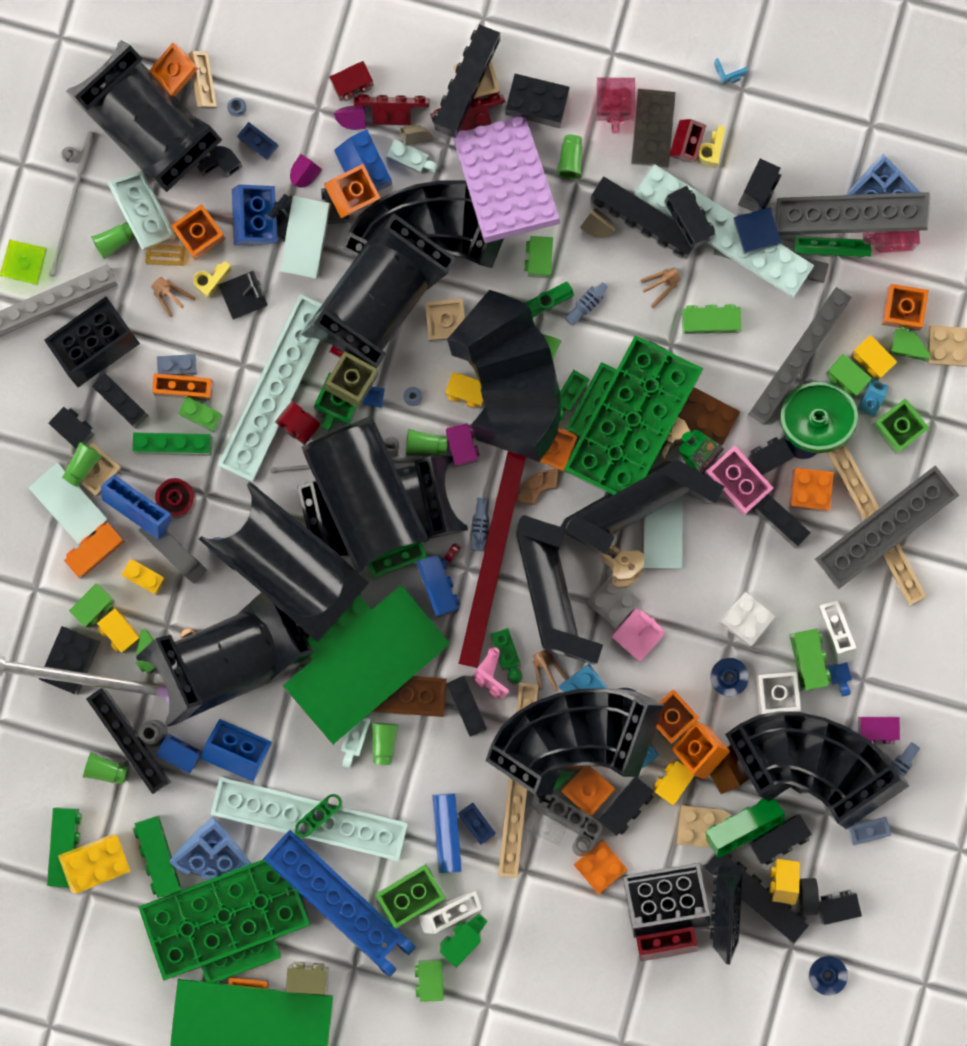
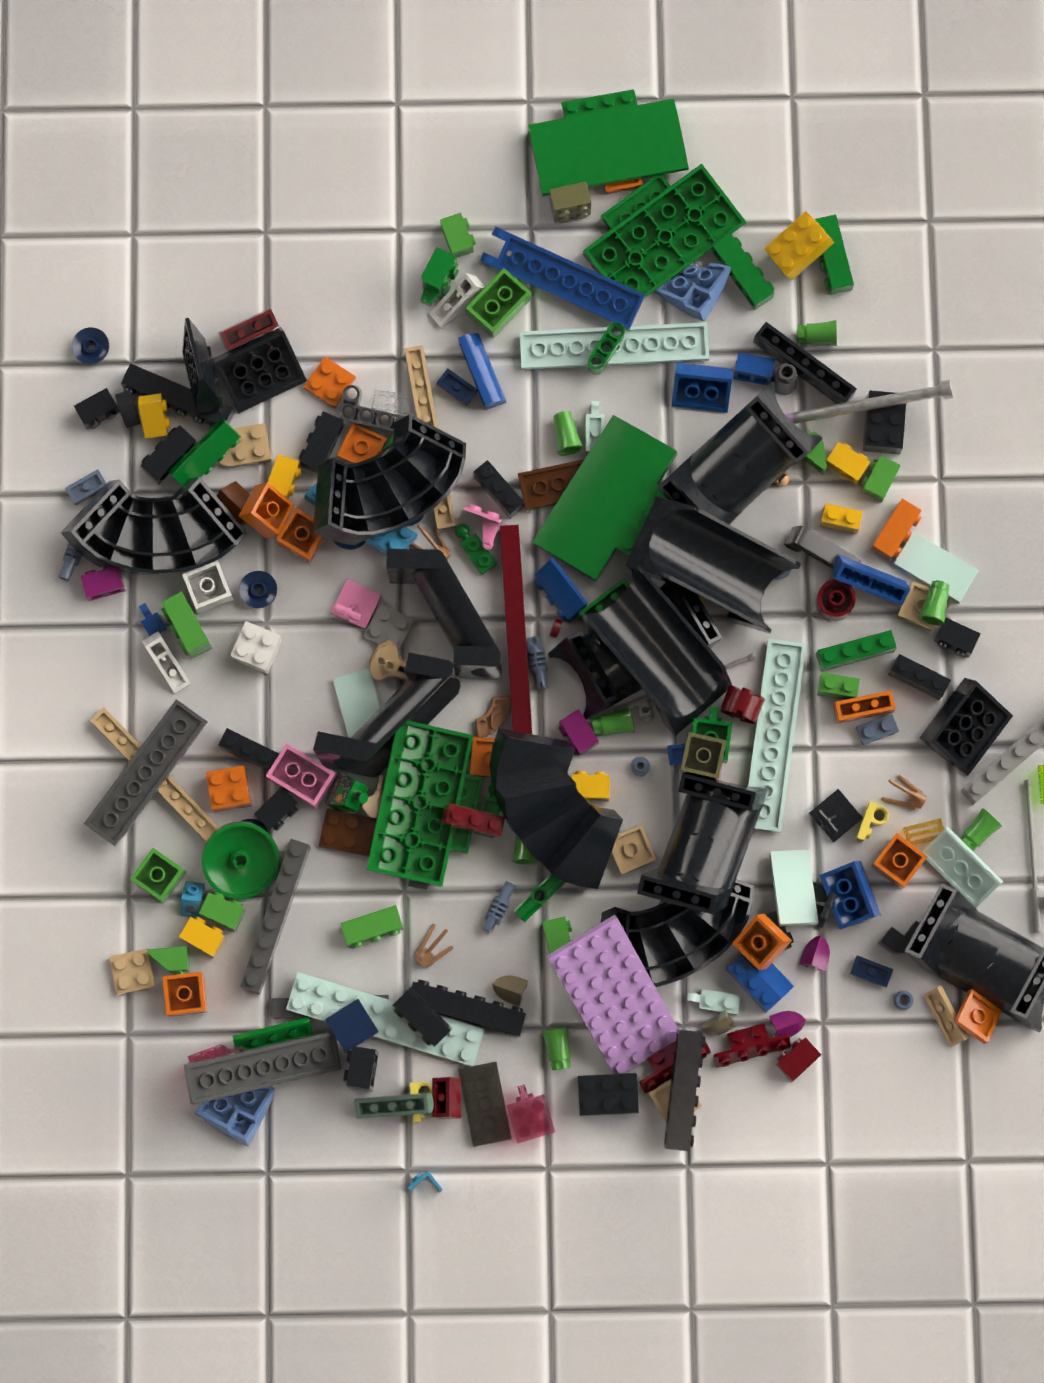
camera: 165 degrees right, 5 degrees down
(588, 386) = (472, 820): none -> dark red brick
(737, 145) = (394, 1105): none -> sand green brick

